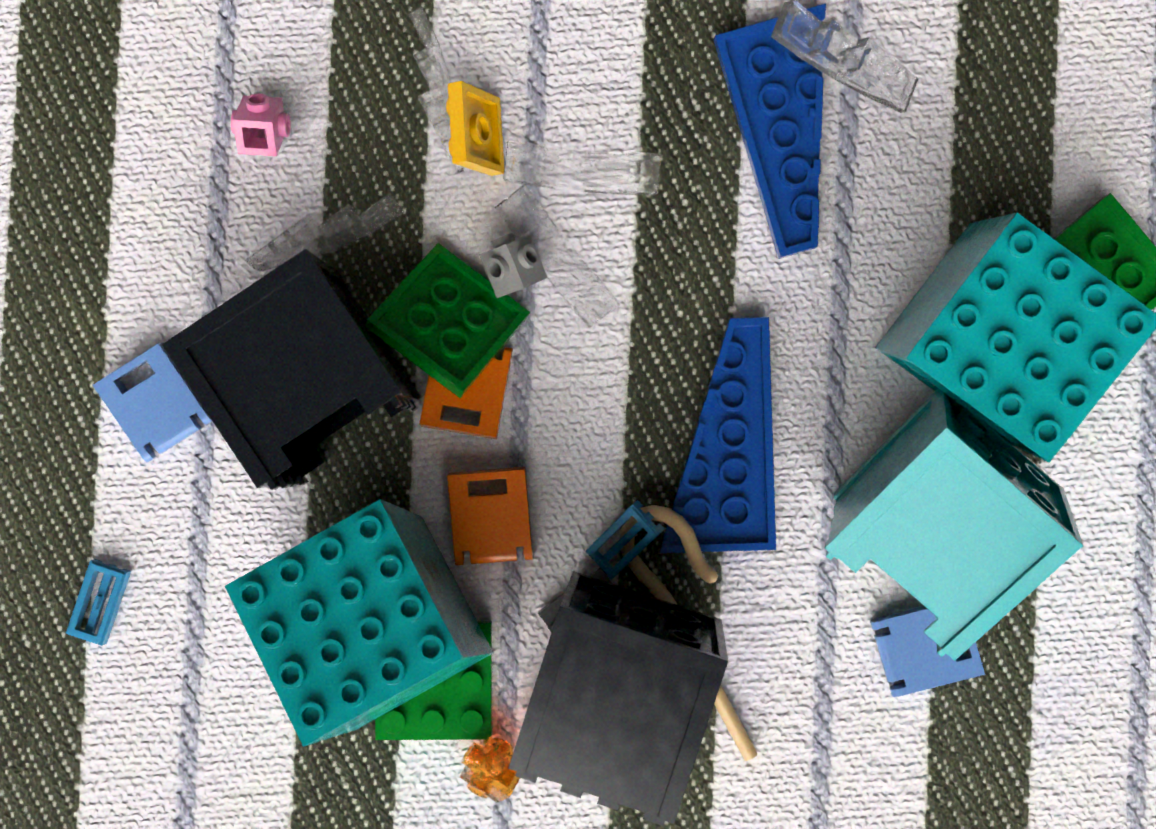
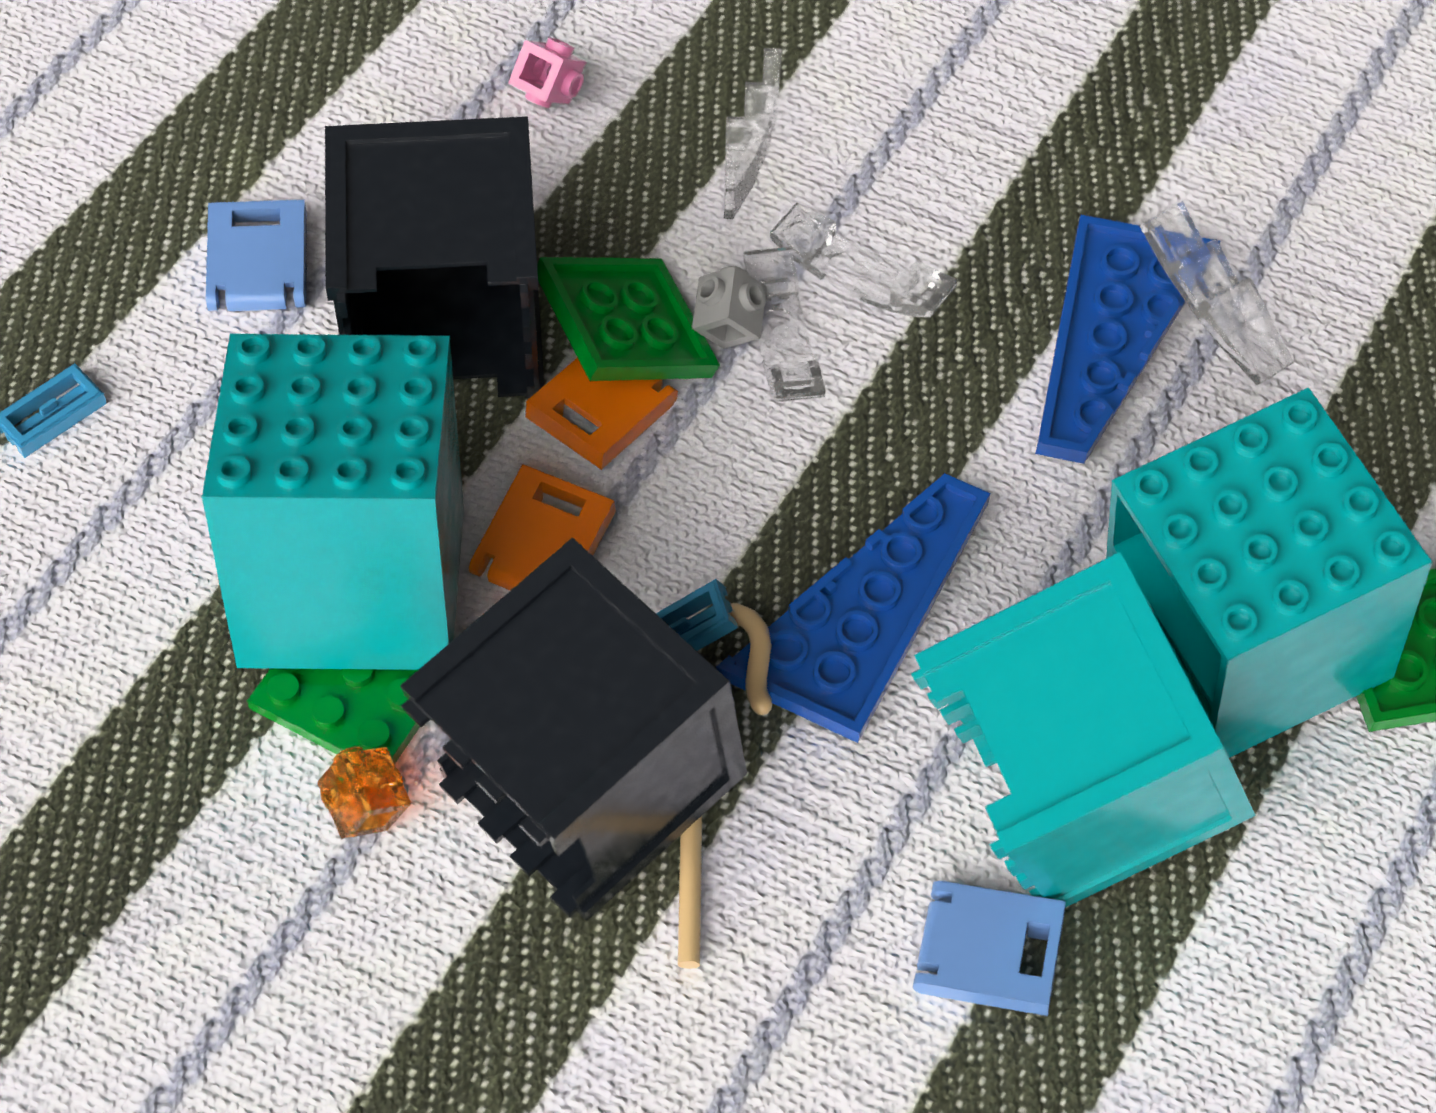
camera: 30 degrees right, 30 degrees down
(333, 234) = (576, 201): clear slope -> none
(475, 128) = (769, 168): yellow plate -> none

